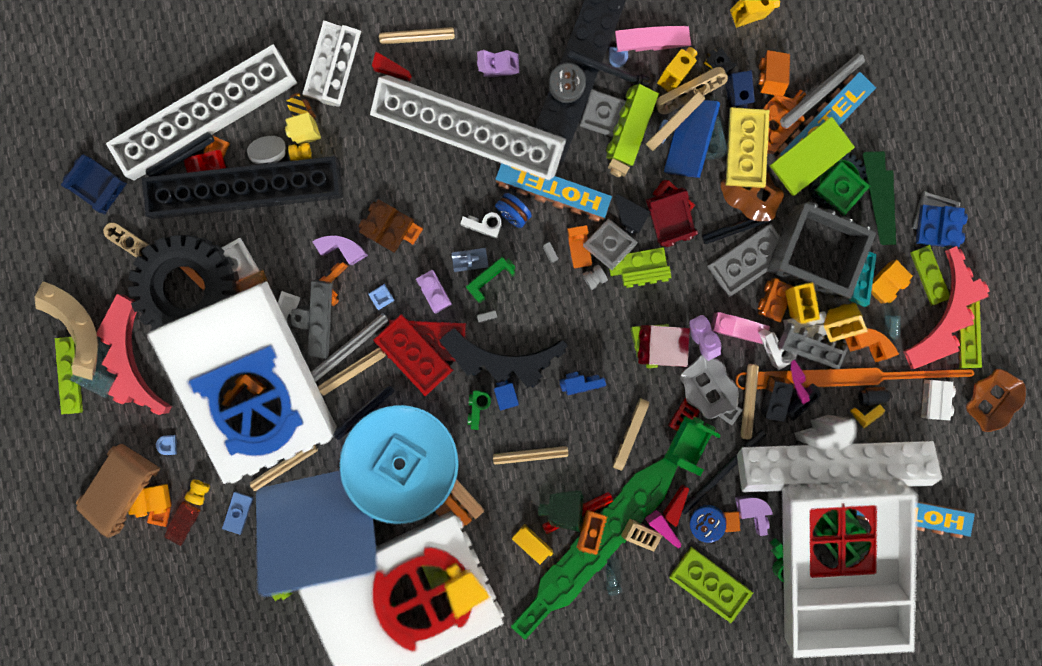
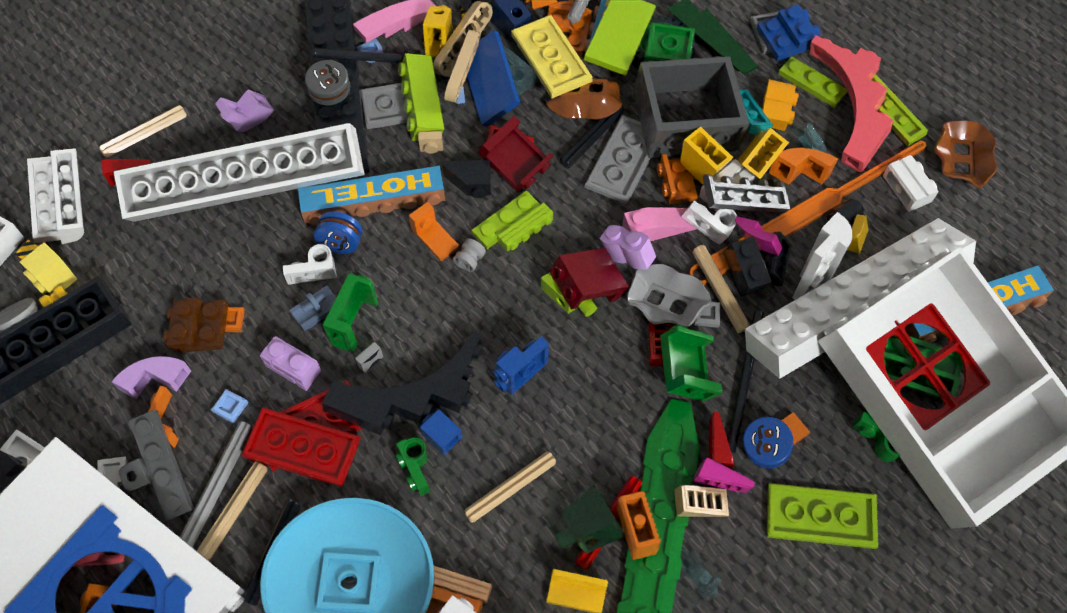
camera: 25 degrees left, 25 degrees down
(550, 252) = (405, 256): light grey tile -> none
(610, 244) = (466, 214): light grey tile -> none
(630, 434) = (614, 396): tan beam -> none
(752, 506) = (810, 394): lavender brick -> none

